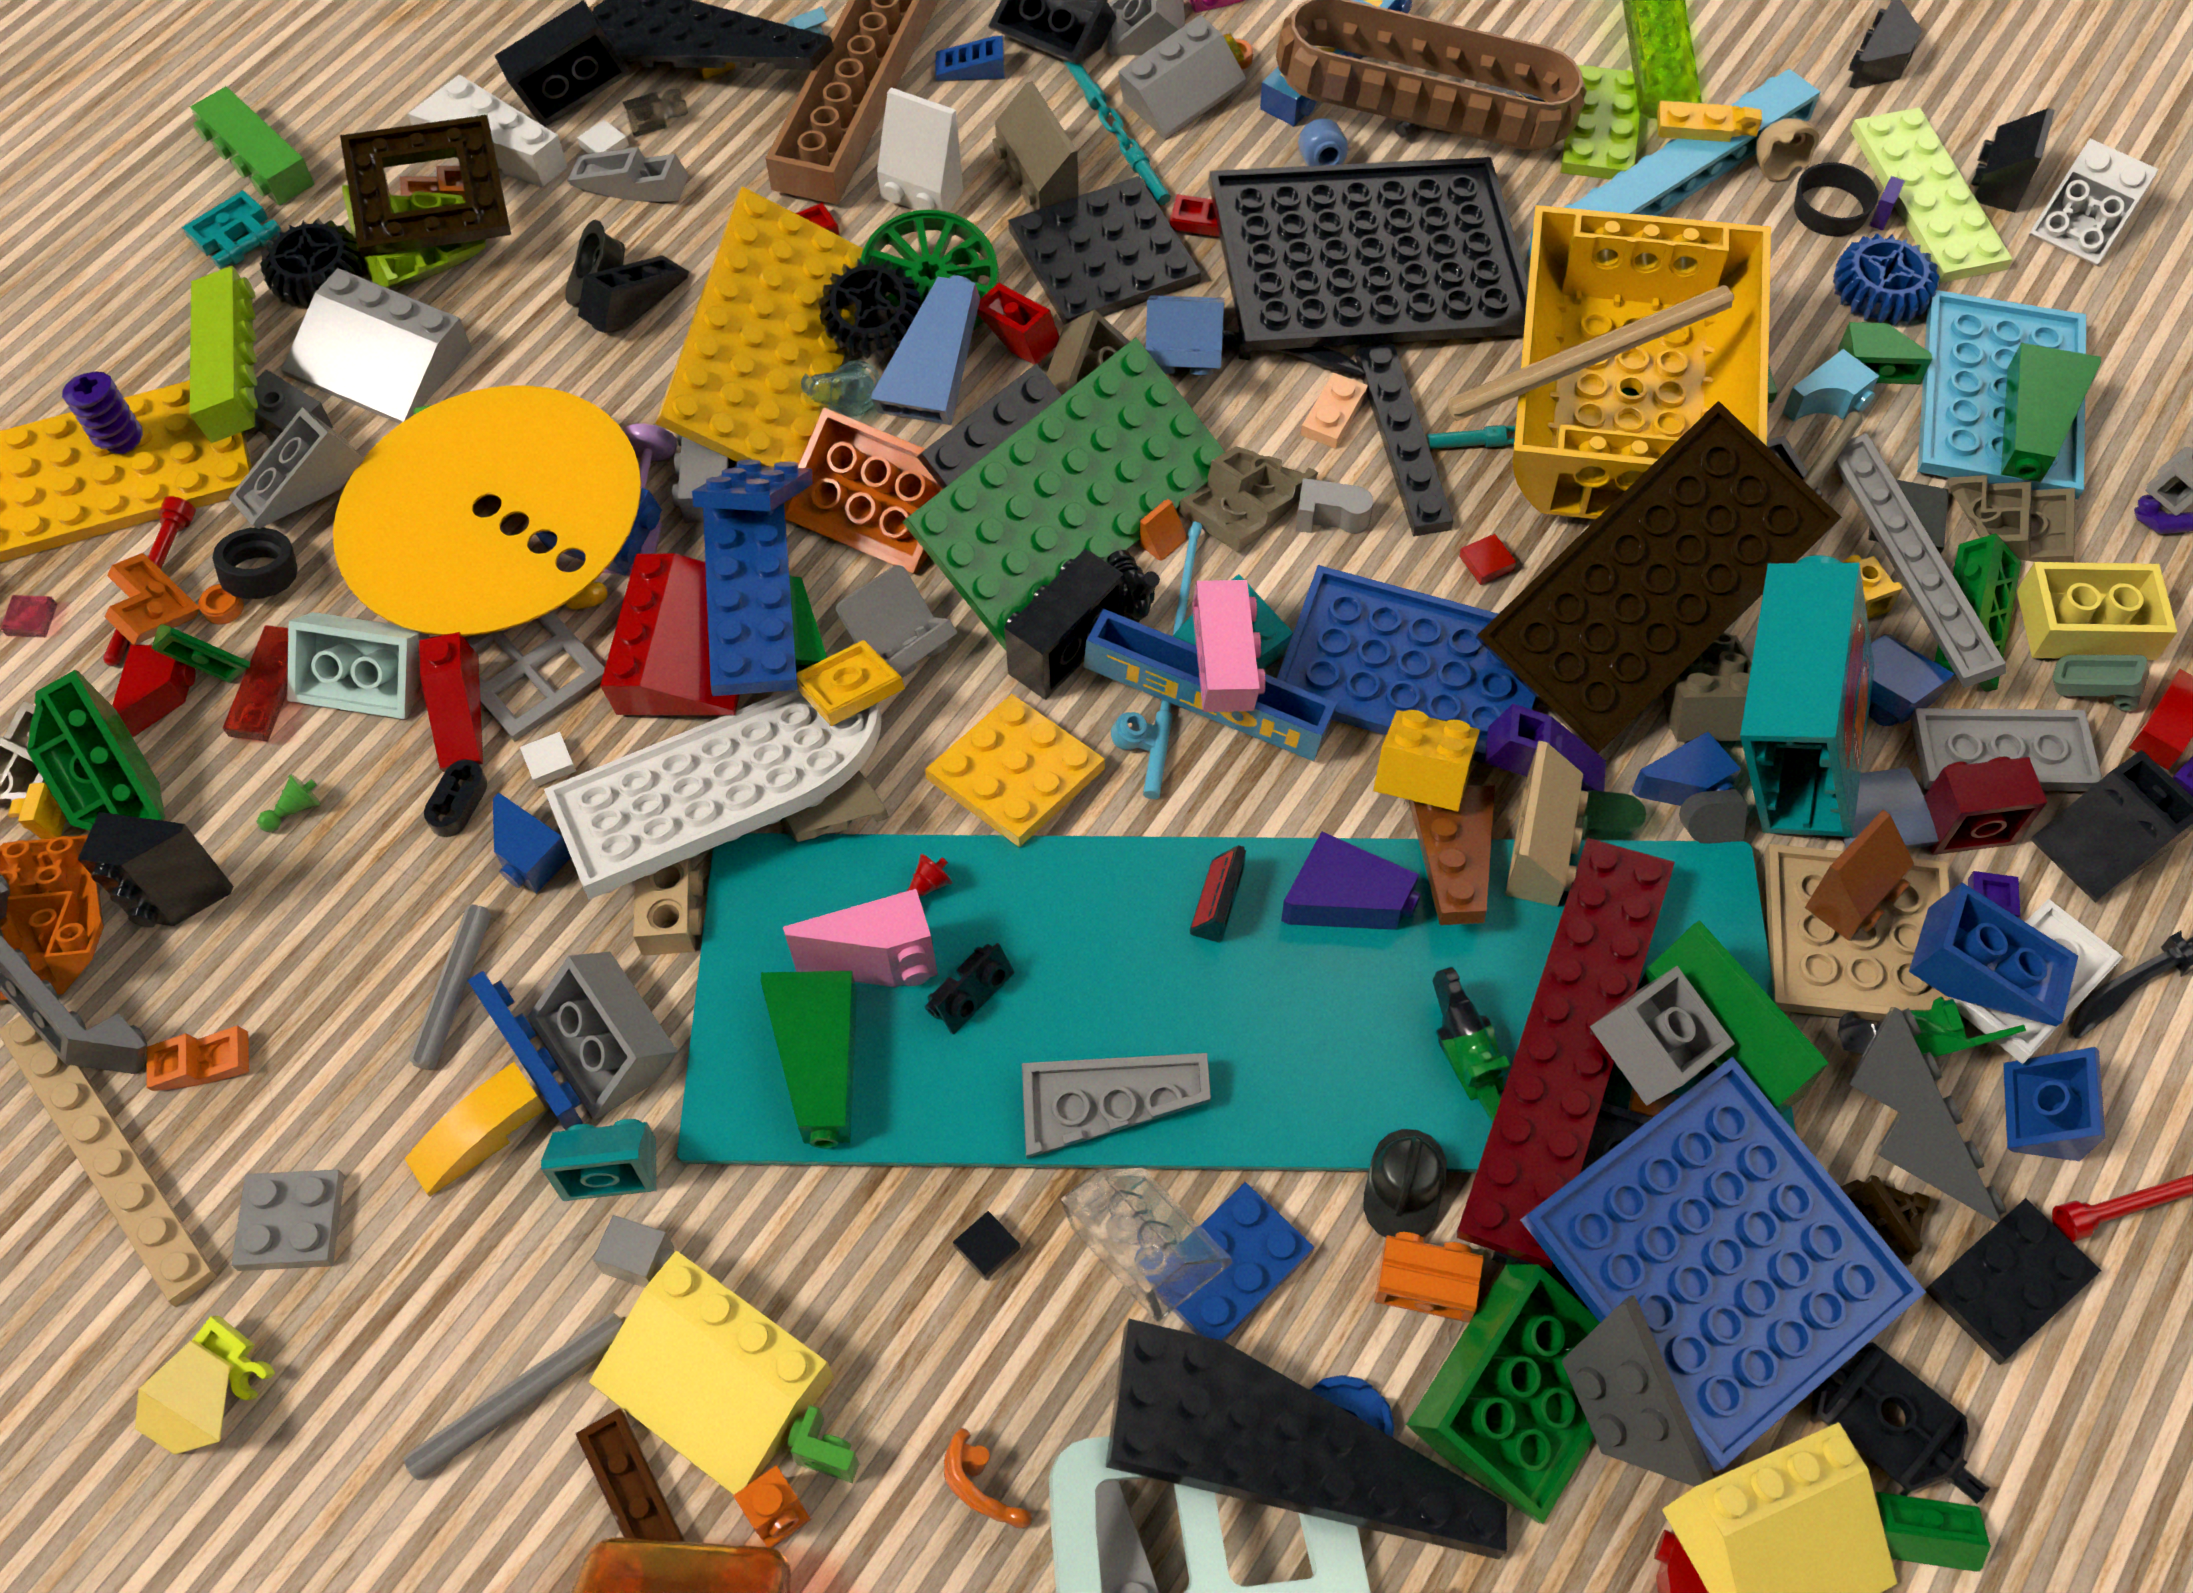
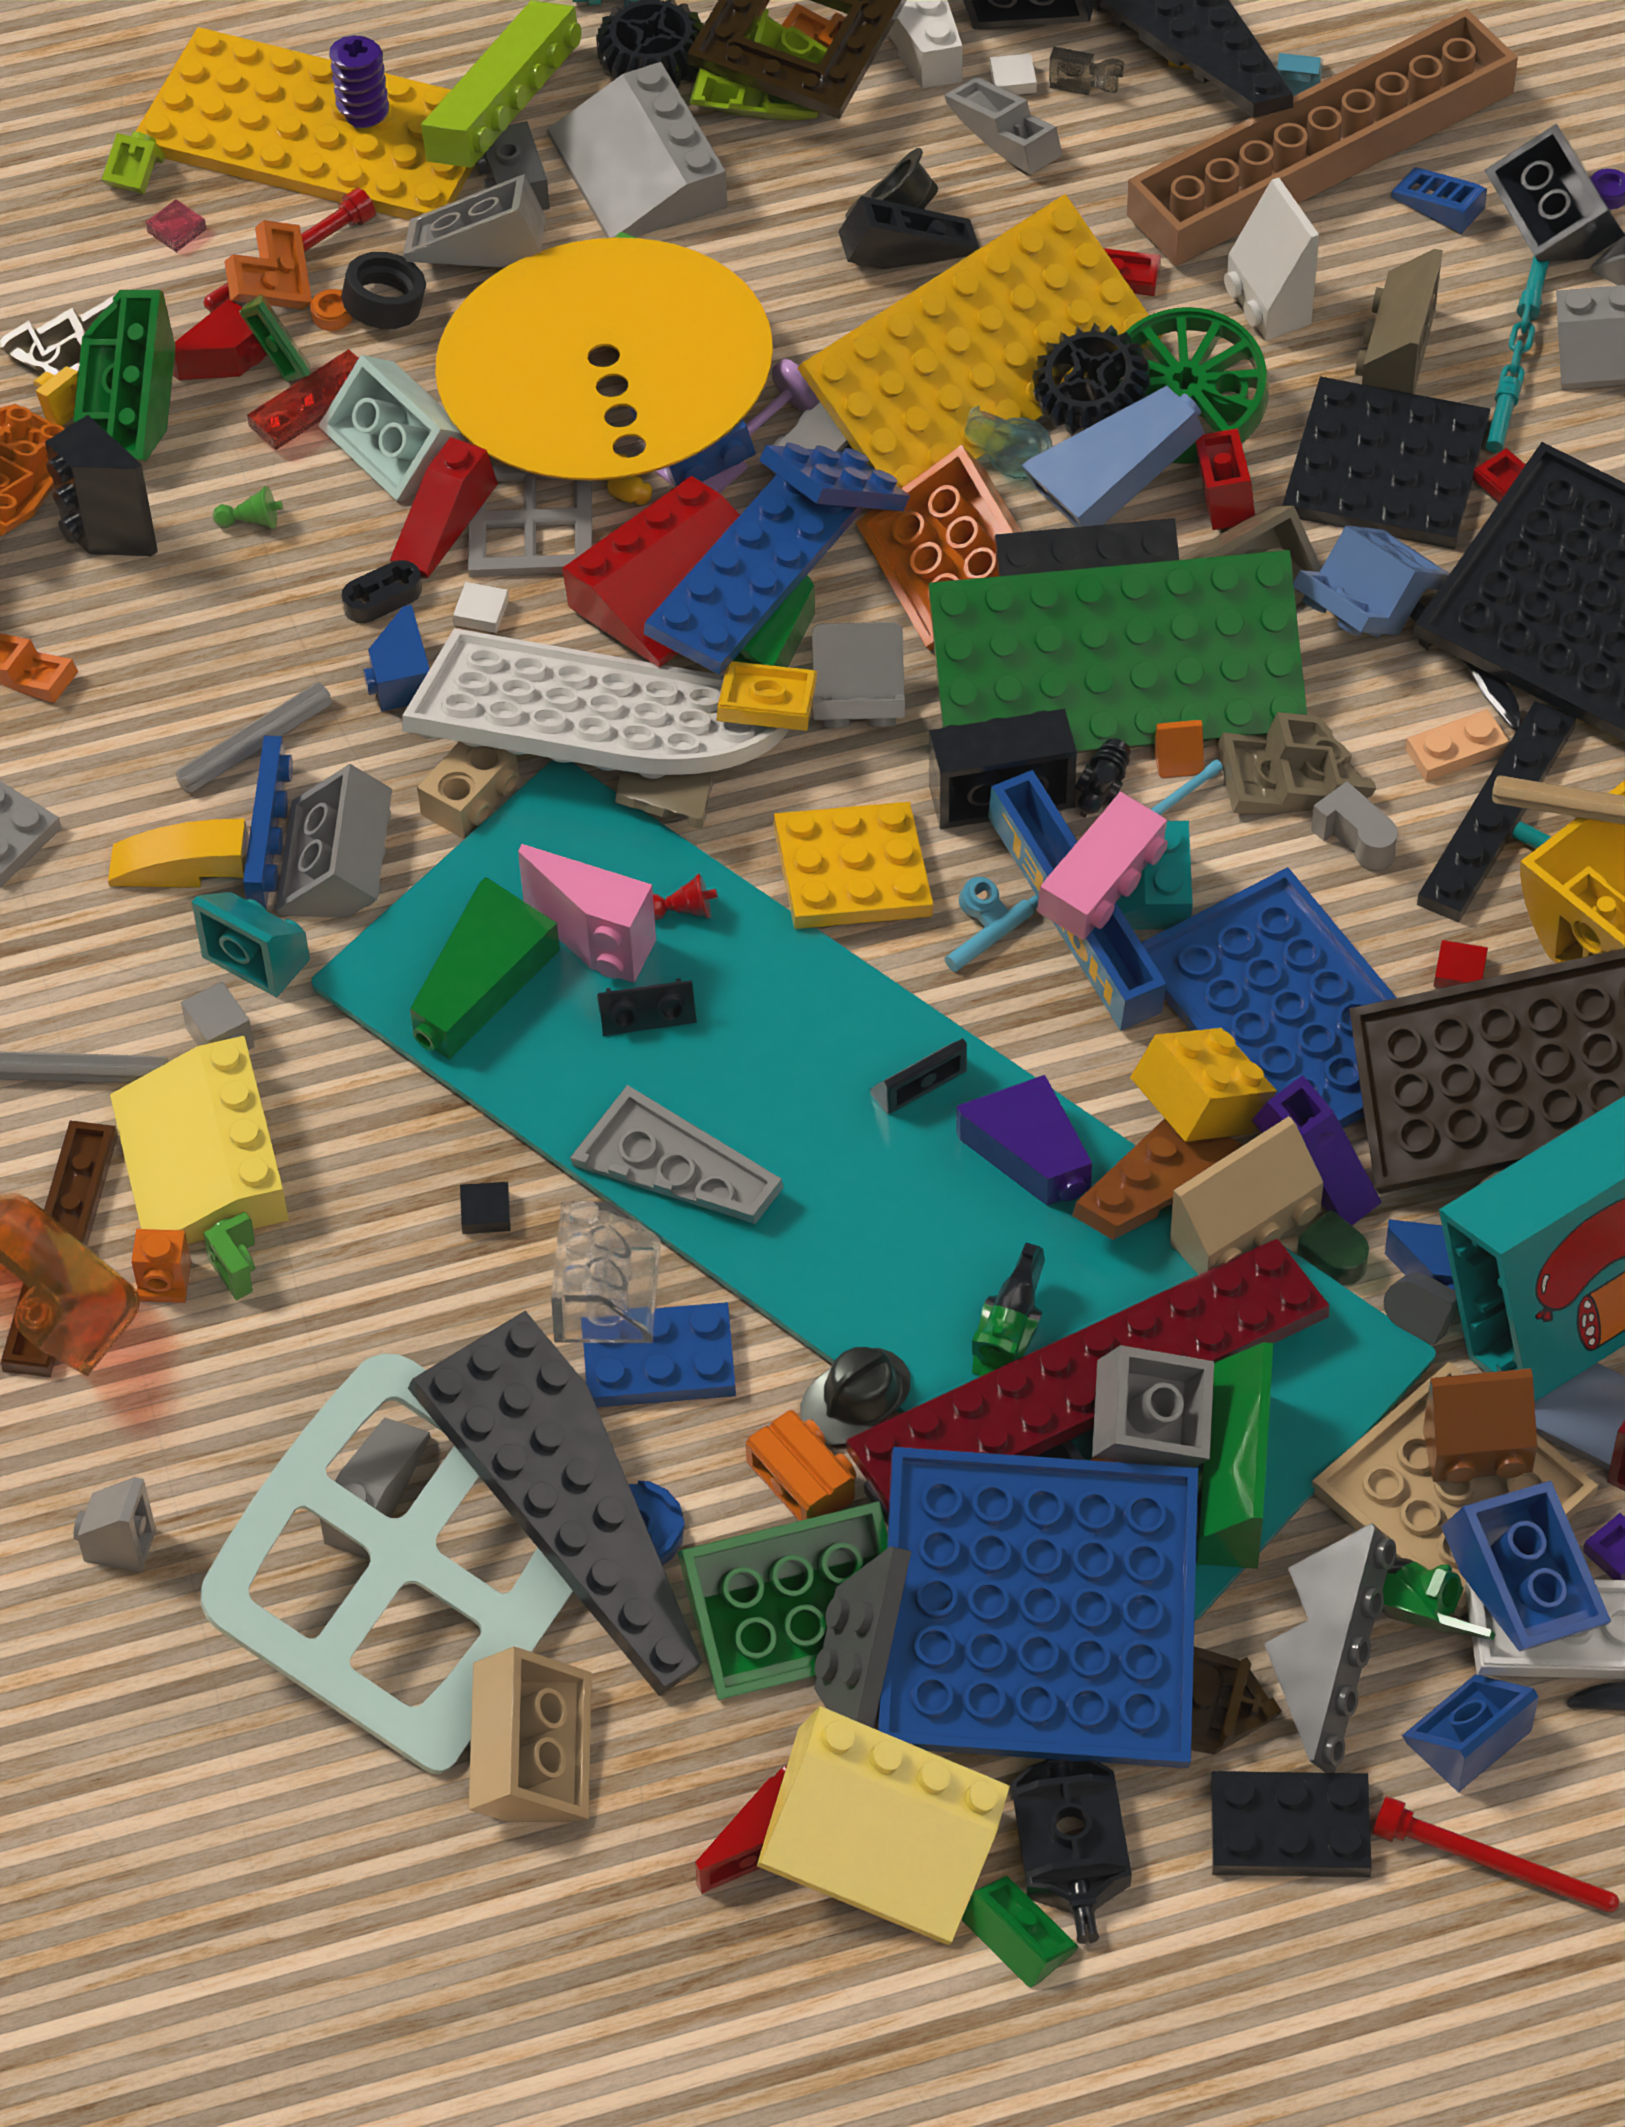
camera: 40 degrees right, 5 degrees down
(966, 1458) = (329, 1336): orange piece -> none

